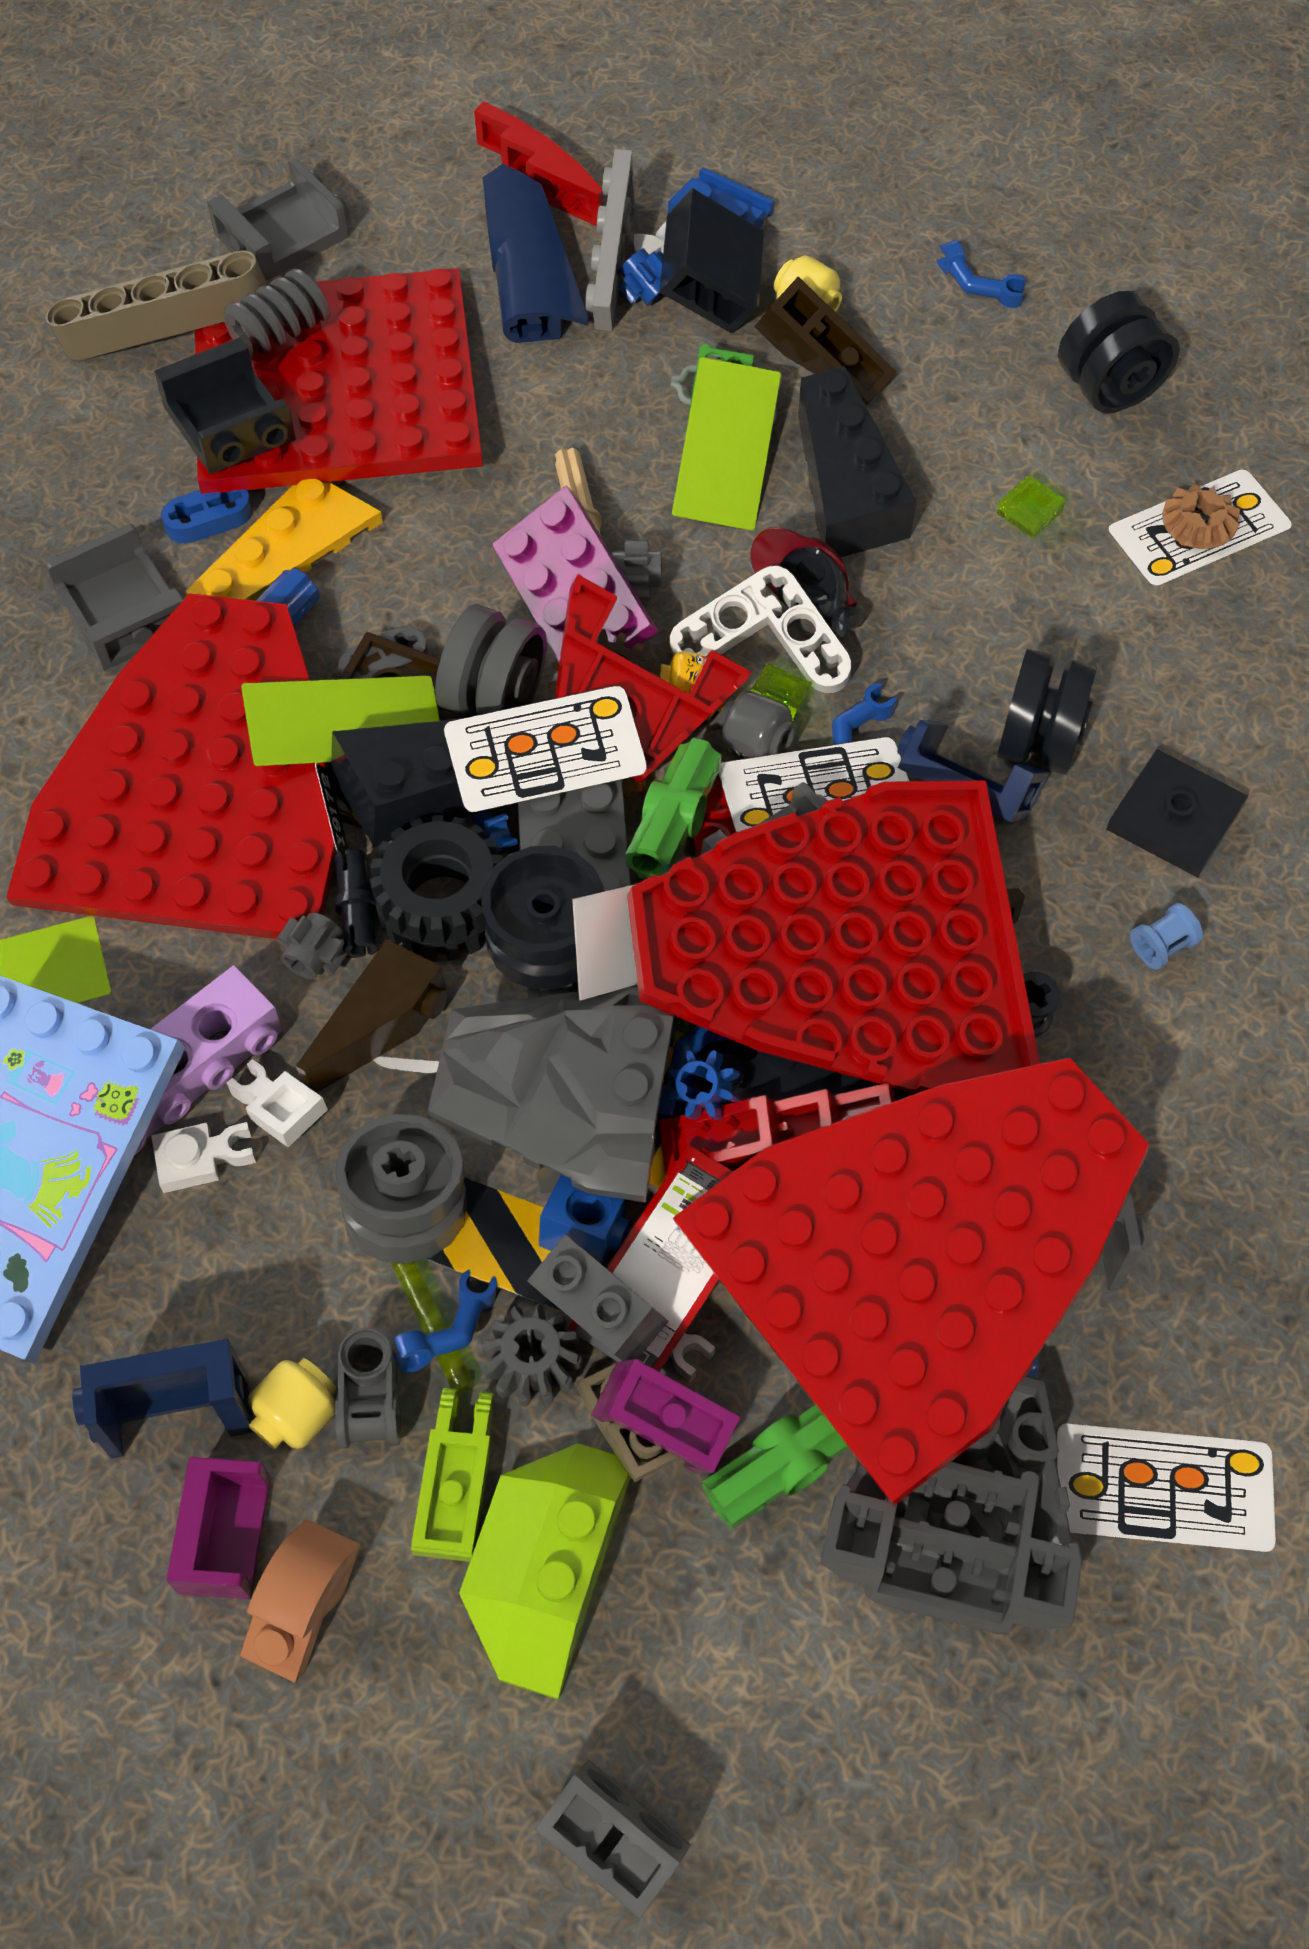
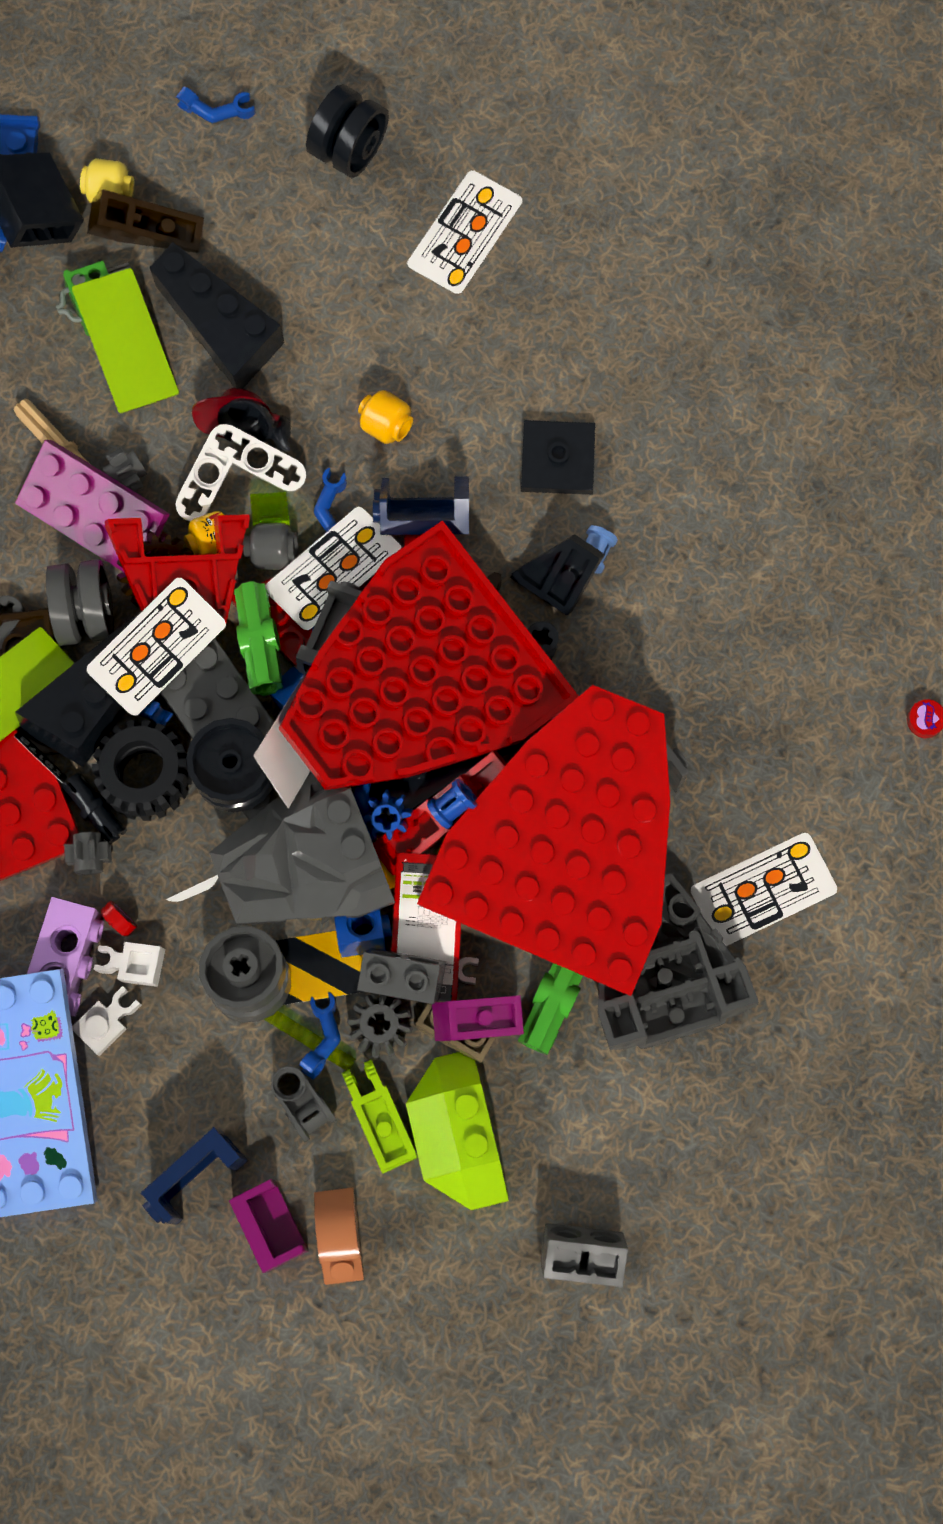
camera: 30 degrees left, 15 degrees up
(292, 1404) = (263, 1134): light yellow head -> none
(294, 1037) = (118, 919): none -> red tile
(377, 1014) = (158, 867): dark brown slope -> none
(795, 1114) = (452, 803): none -> blue bush
(984, 660) = (385, 417): none -> yellow head
(1030, 506) = (351, 279): clear neon green plate -> none
(1048, 711) = (442, 438): black wheel -> none
(1106, 936) = (561, 573): none -> black wing
(1190, 528) = (460, 240): medium nougat gear -> none

